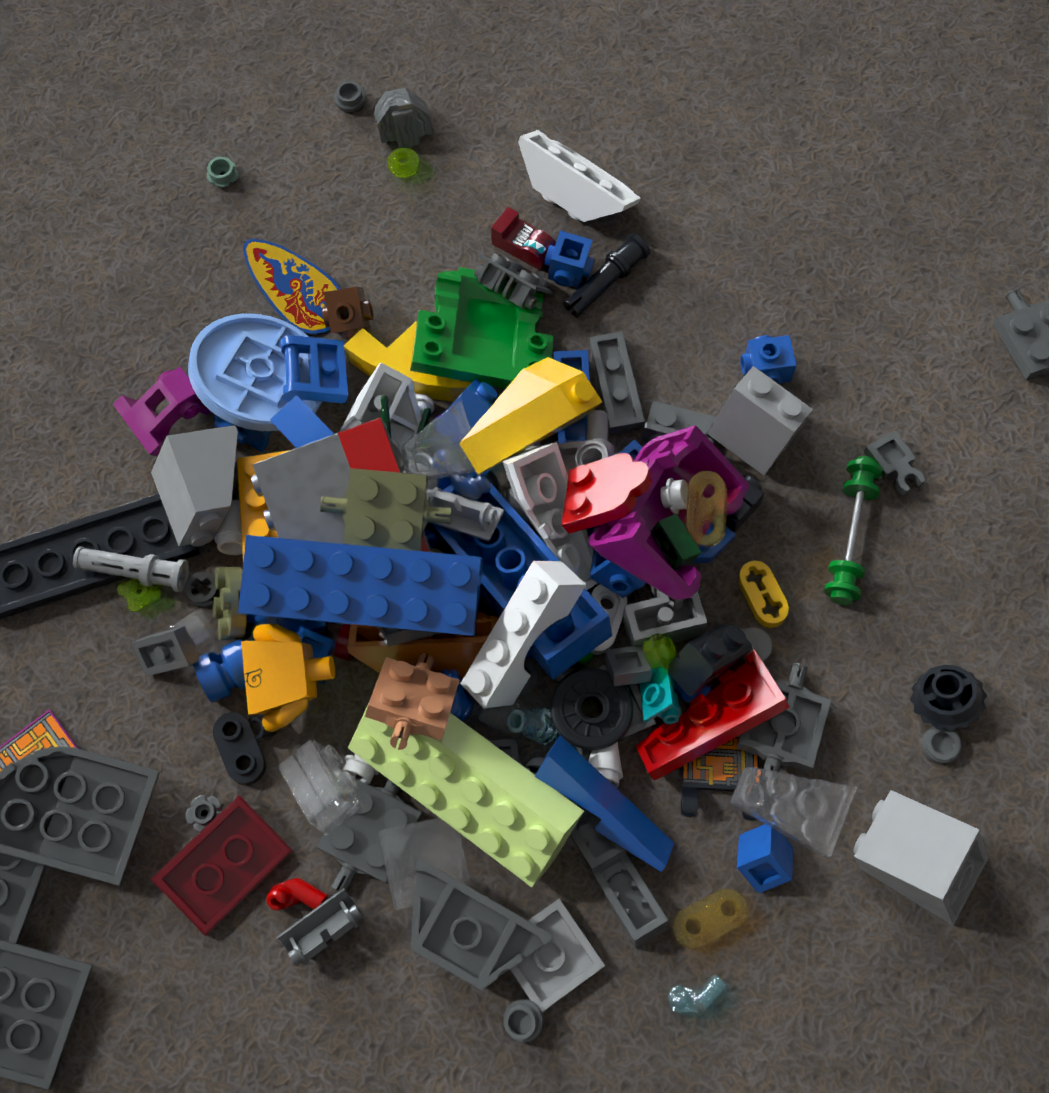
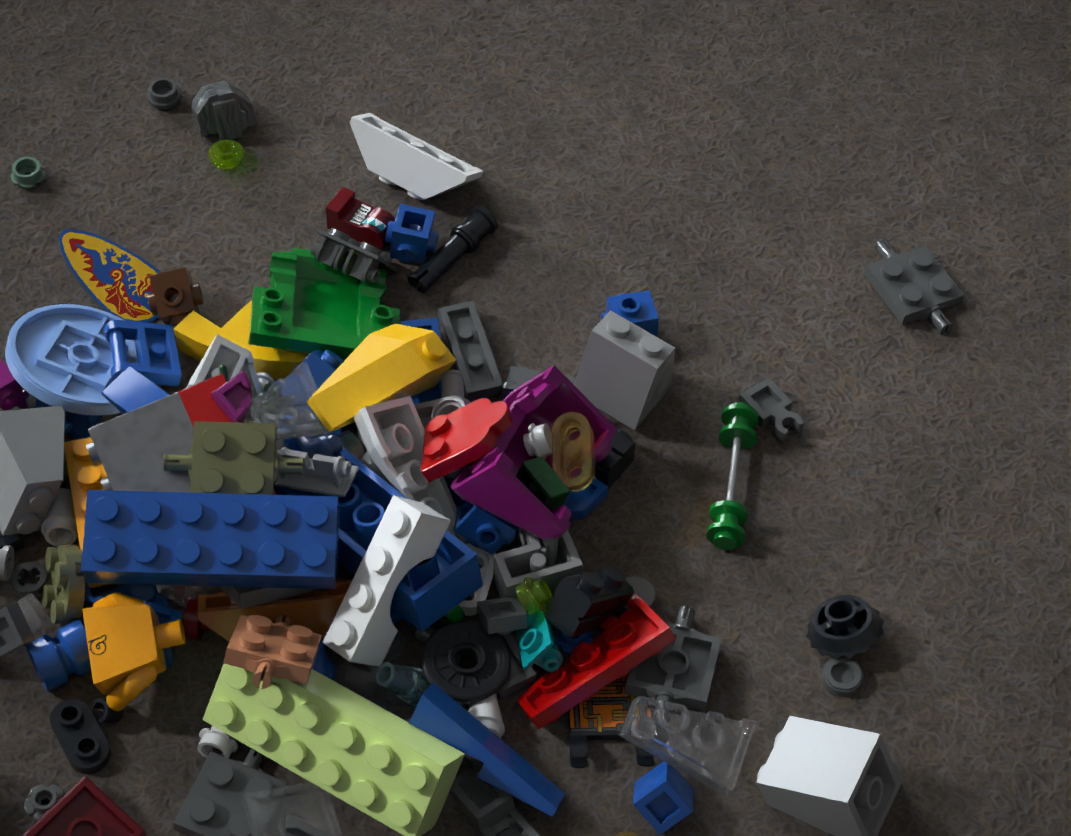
camera: 10 degrees left, 15 degrees down
(321, 786) = (175, 757): clear brick -> none
(390, 444) = (234, 397): none -> magenta tile
(755, 597) = (636, 548): yellow beam -> none

